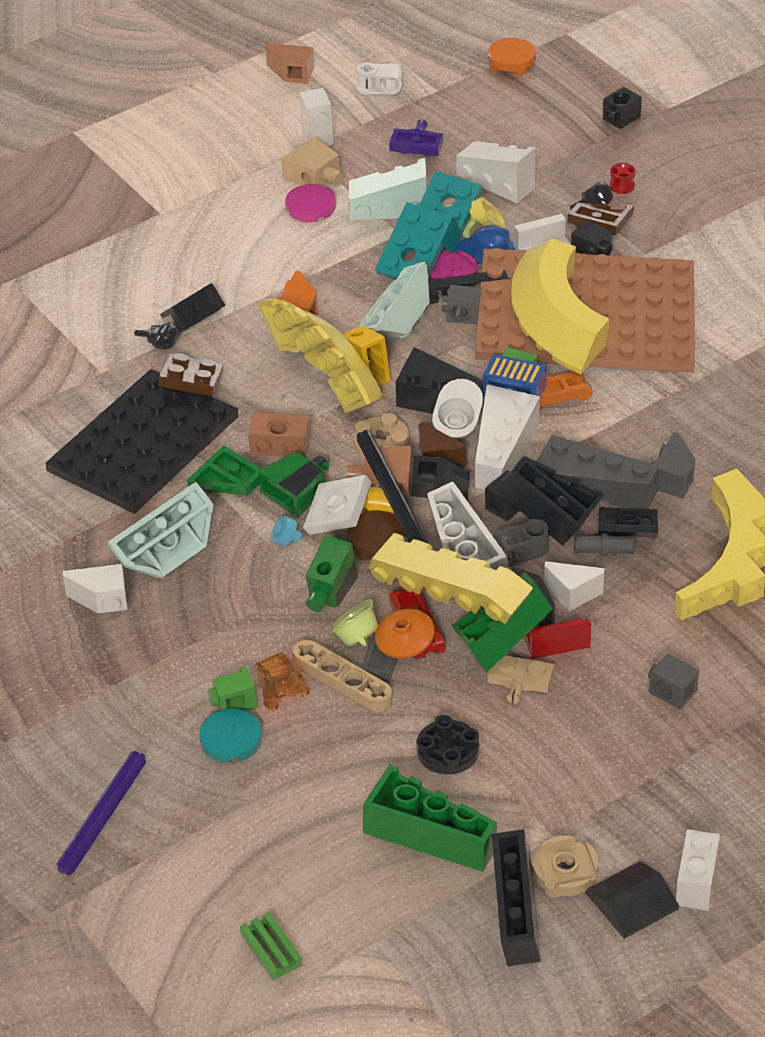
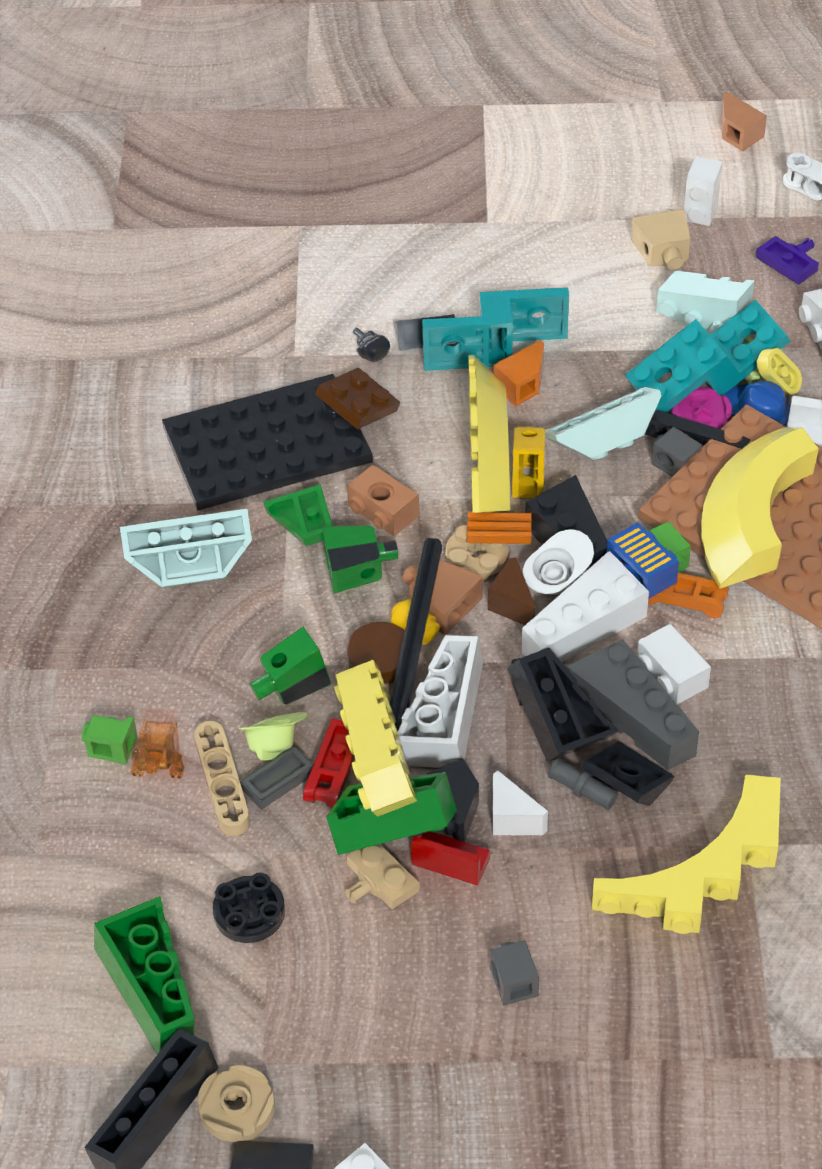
camera: 35 degrees right, 5 degrees up
(97, 588) = (95, 568): white slope -> none
(230, 735) = (74, 779): teal tile -> none
(253, 278) = (501, 321): none -> teal bracket
(285, 531) = (300, 602): medium azure tile -> none
(310, 202) = (630, 276): dark pink tile -> none
(337, 504) = (365, 601): white plate -> none
(390, 409) = (492, 528): none -> orange tile
(404, 633) = (307, 768): orange dish -> none
(435, 472) = (475, 618): black slope -> none
(524, 541) = (506, 737): dark grey piece -> none
(595, 432) = (674, 663): none -> white brick
(675, 467) = (725, 740): dark grey slope -> none

